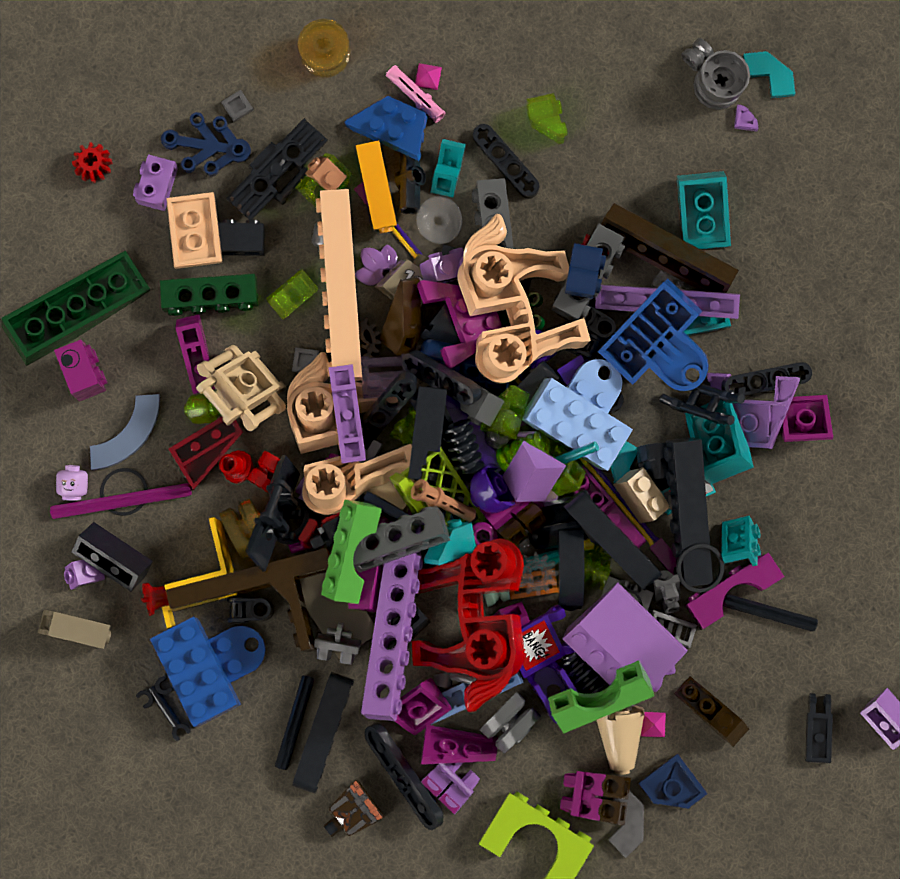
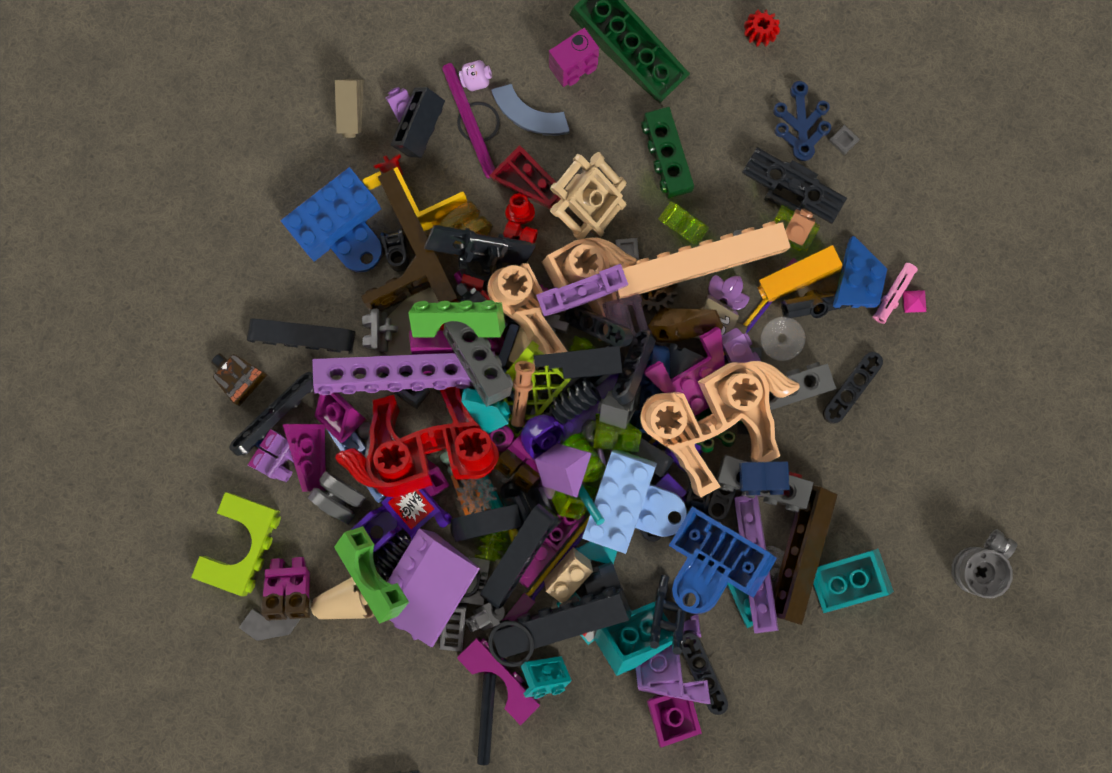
camera: 75 degrees right, 0 degrees up
(155, 182) = (757, 85): medium lavender brick -> none
(155, 694) = (308, 188): black bar -> none
(193, 347) = (620, 147): magenta slope -> none
(194, 230) = (720, 124): light nougat tile -> none
(200, 409) = (559, 166): clear neon green head -> none
(242, 238) = (722, 158): black brick -> none
(294, 722) = (308, 310): black axle -> none
(324, 48) = (917, 201): clear yellow wheel -> none
(448, 168) = (833, 337): teal slope -> none
(545, 117) = (904, 414): clear neon green slope -> none
(653, 724) = (363, 629): dark pink slope -> none
(673, 785) = (311, 658): dark blue plate -> none
(712, 711) = (384, 681): dark brown slope -> none
(745, 119) = (948, 603): medium lavender tile -> none
(780, 76) = (1000, 628): teal tile -> none

